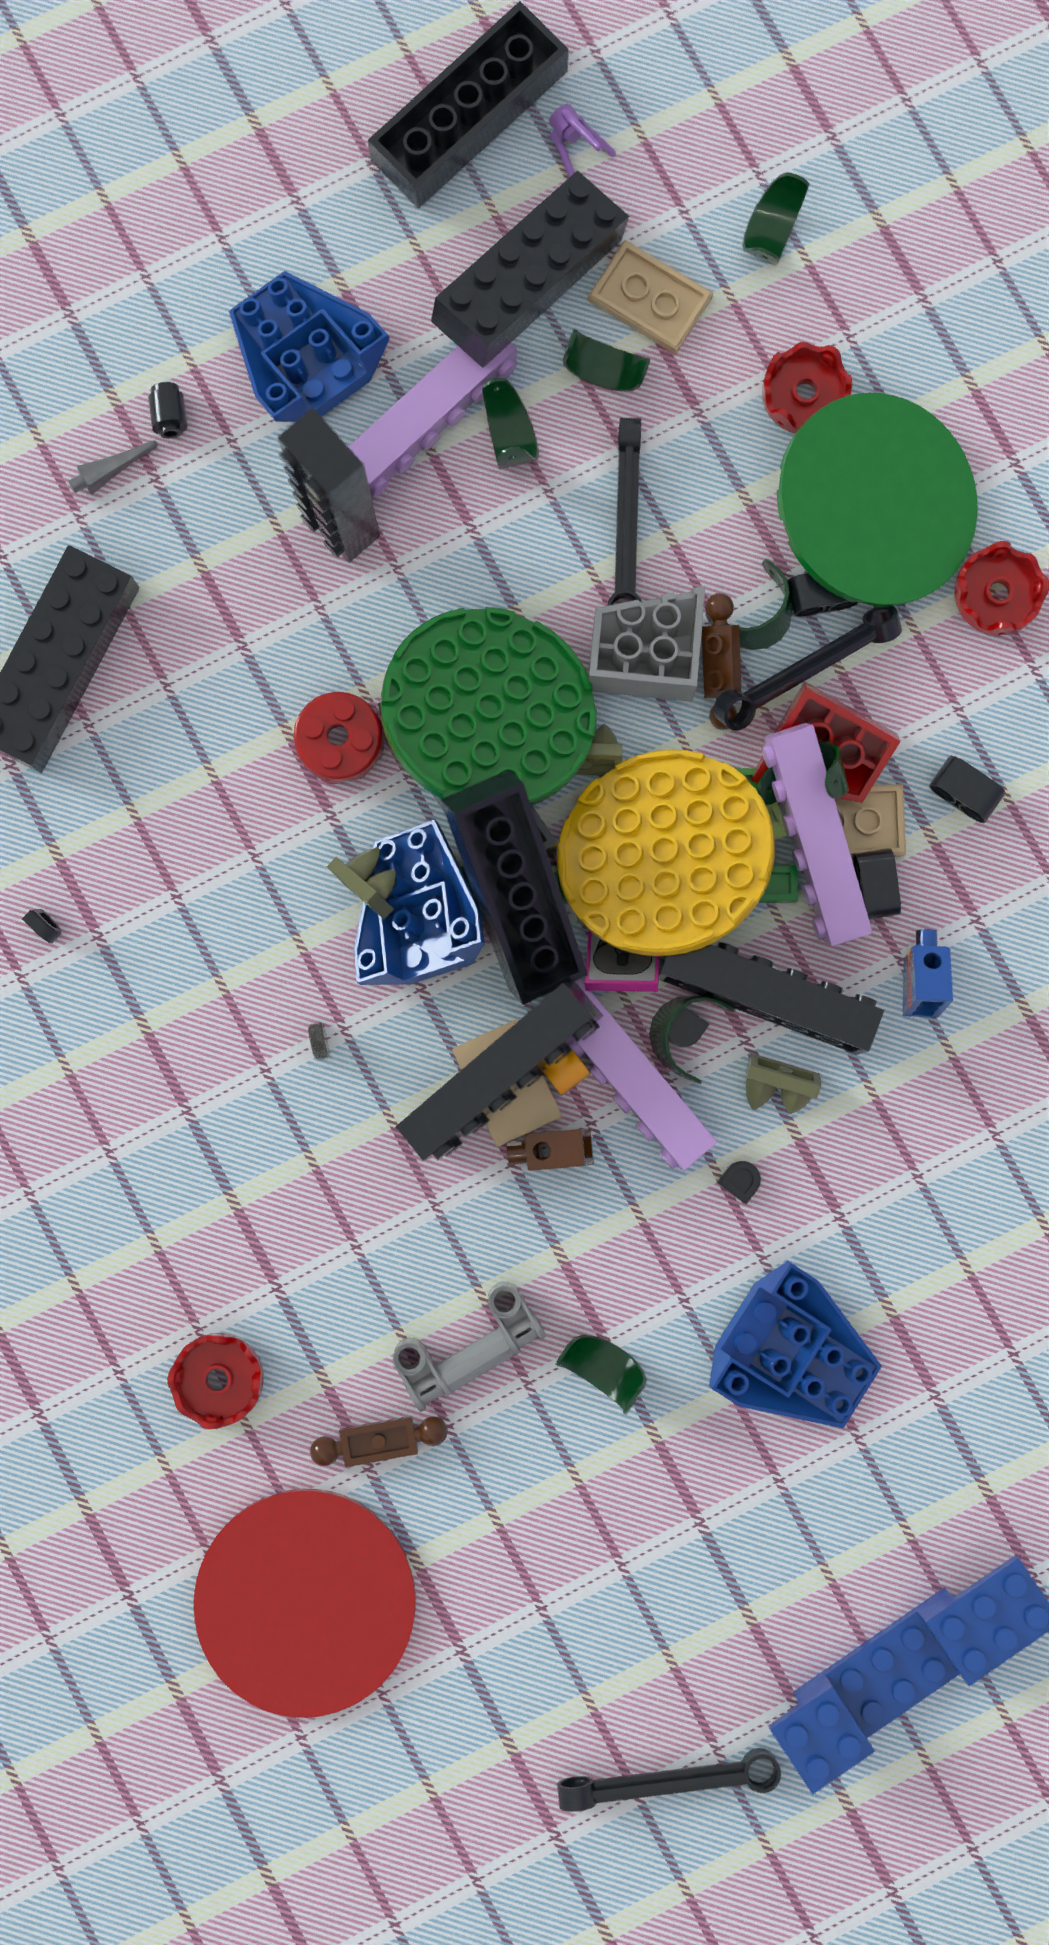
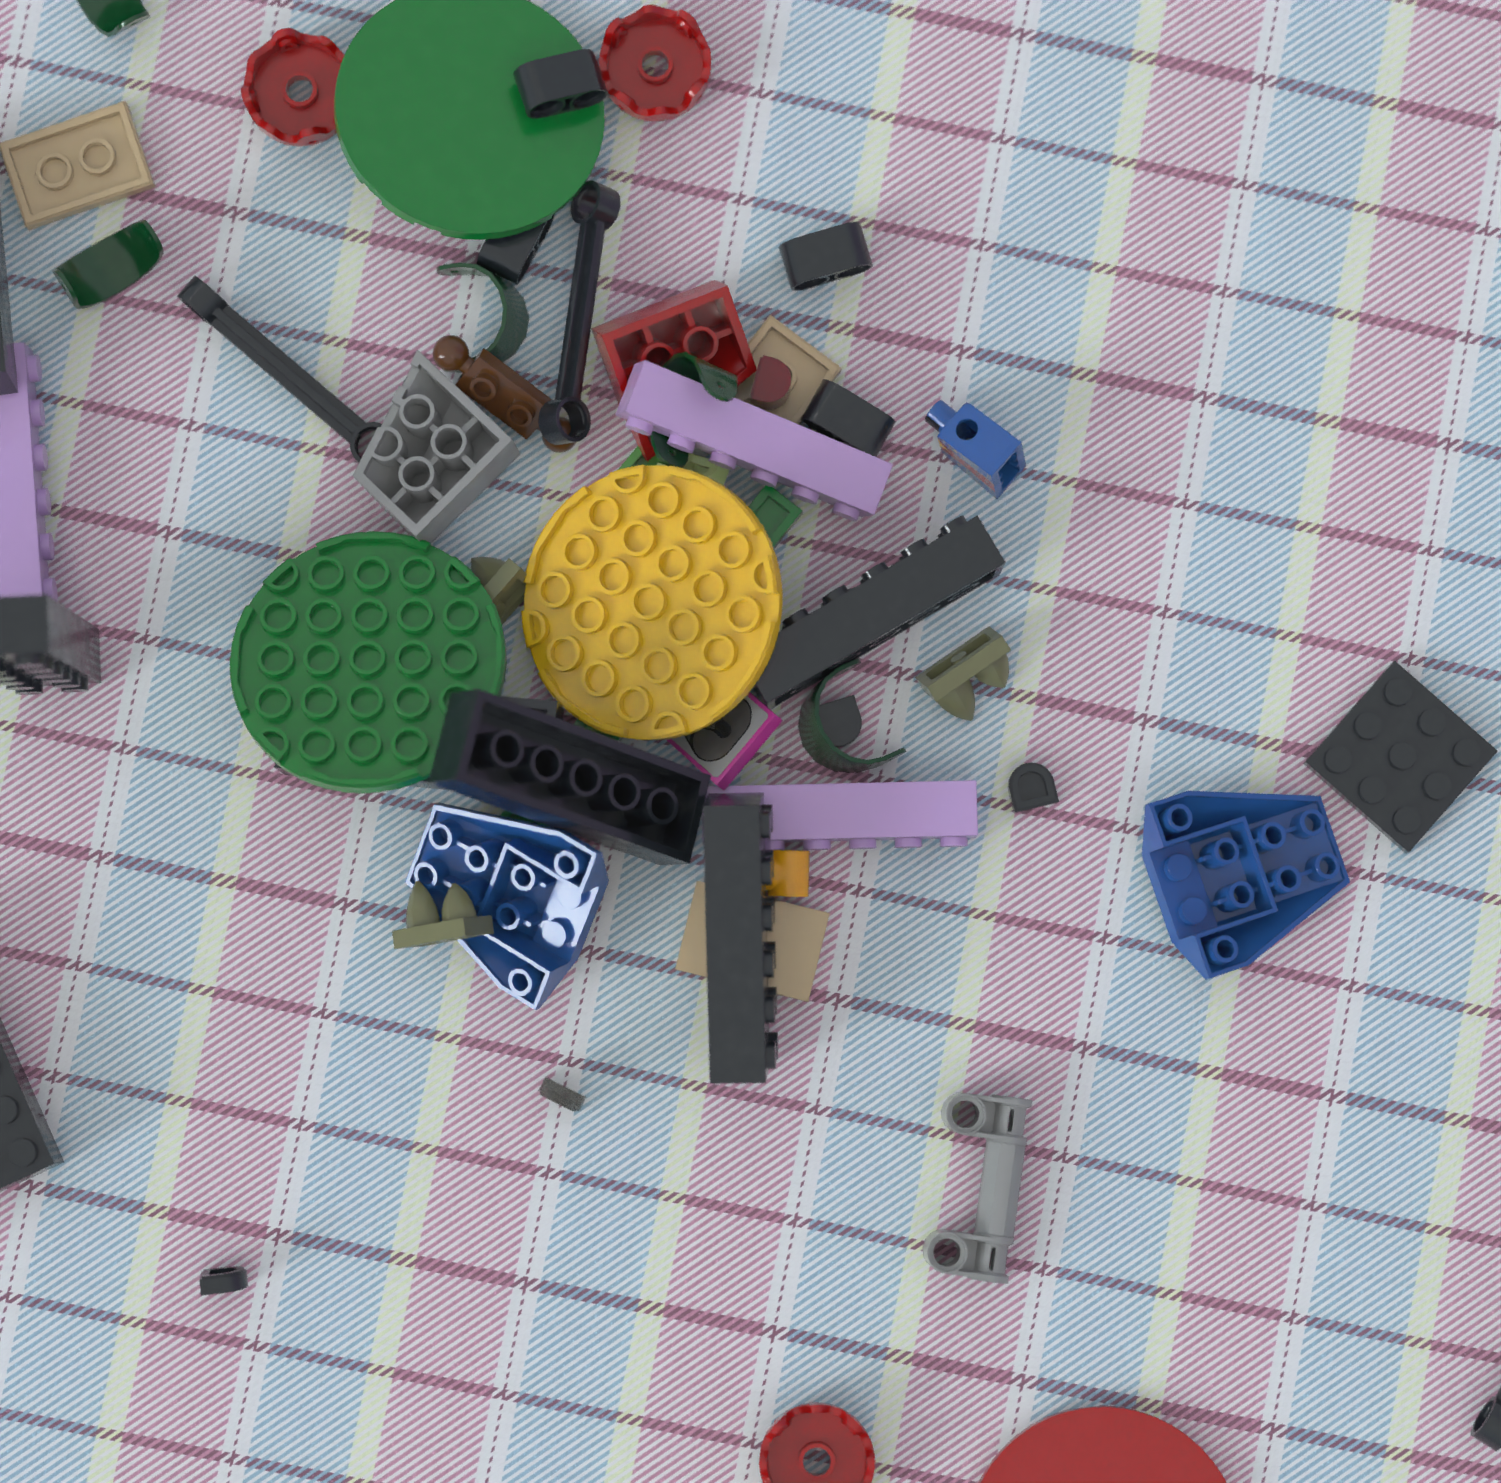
camera: 50 degrees left, 0 degrees up
(344, 761) = (304, 840): red plate -> none
(378, 1441) = (1003, 1348): reddish brown plate -> none
(509, 424) = (96, 412): dark green piece -> none
(567, 1150) = (866, 933): reddish brown torso -> none
(605, 1367) = (1108, 1067): dark green piece -> none
(860, 818) = (771, 384): none -> dark red brick
(940, 540) = (560, 83): none -> black beam
(947, 1398) = (1400, 757): none -> black plate

